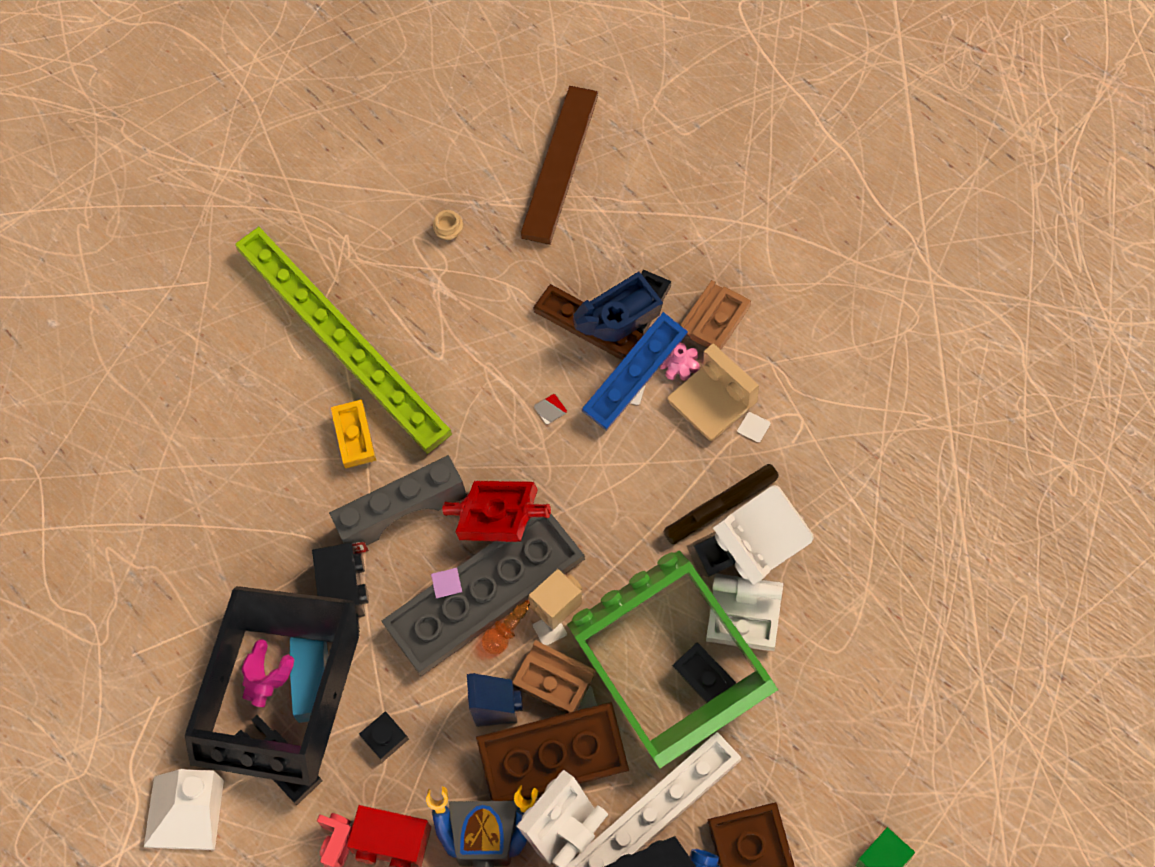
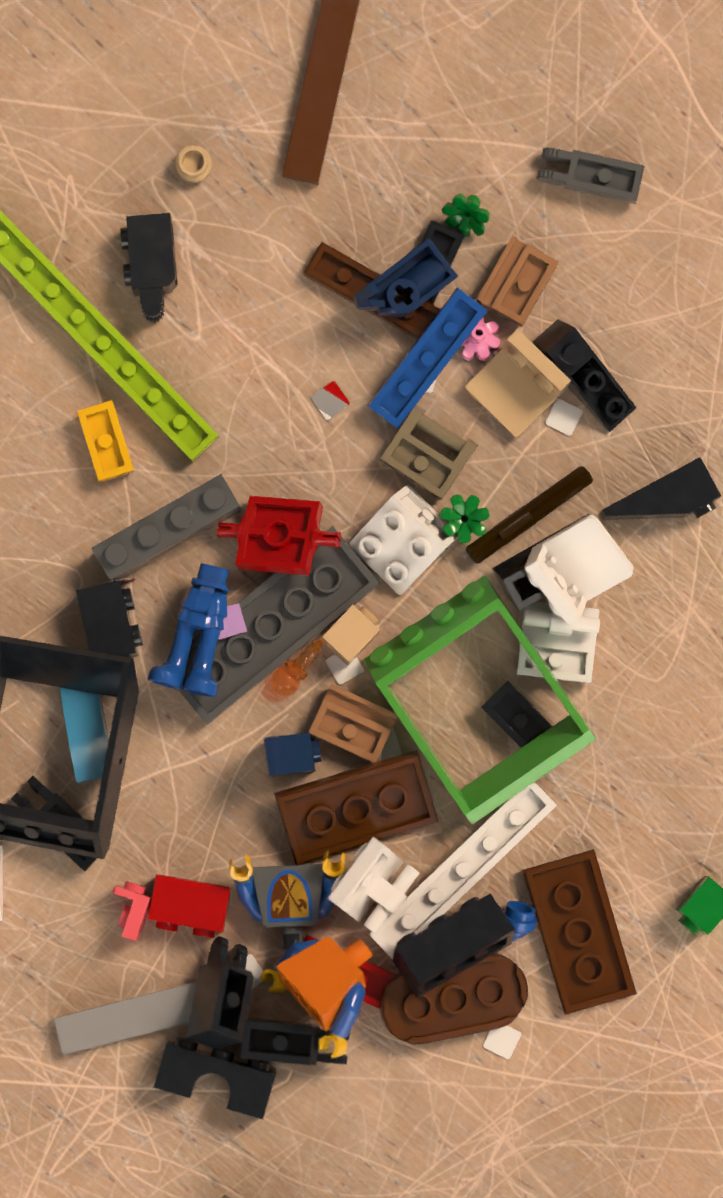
camera: 10 degrees left, 20 degrees up
(256, 683) = (27, 741): dark pink helmet -> none
(384, 736) = (173, 793): black plate -> none
(405, 294) = (151, 259): none -> black hinge
(421, 571) = (203, 610): none -> blue piece
(606, 520) = (402, 539): none -> white bracket
(628, 458) = (421, 462): none -> dark tan plate
(662, 501) = (464, 510): none -> green plant
(673, 264) = (466, 214): none -> green plant
(776, 392) = (588, 375): none -> black slope
(780, 237) = (594, 174): none -> dark grey hinge
(846, 490) = (672, 496): none -> black slope

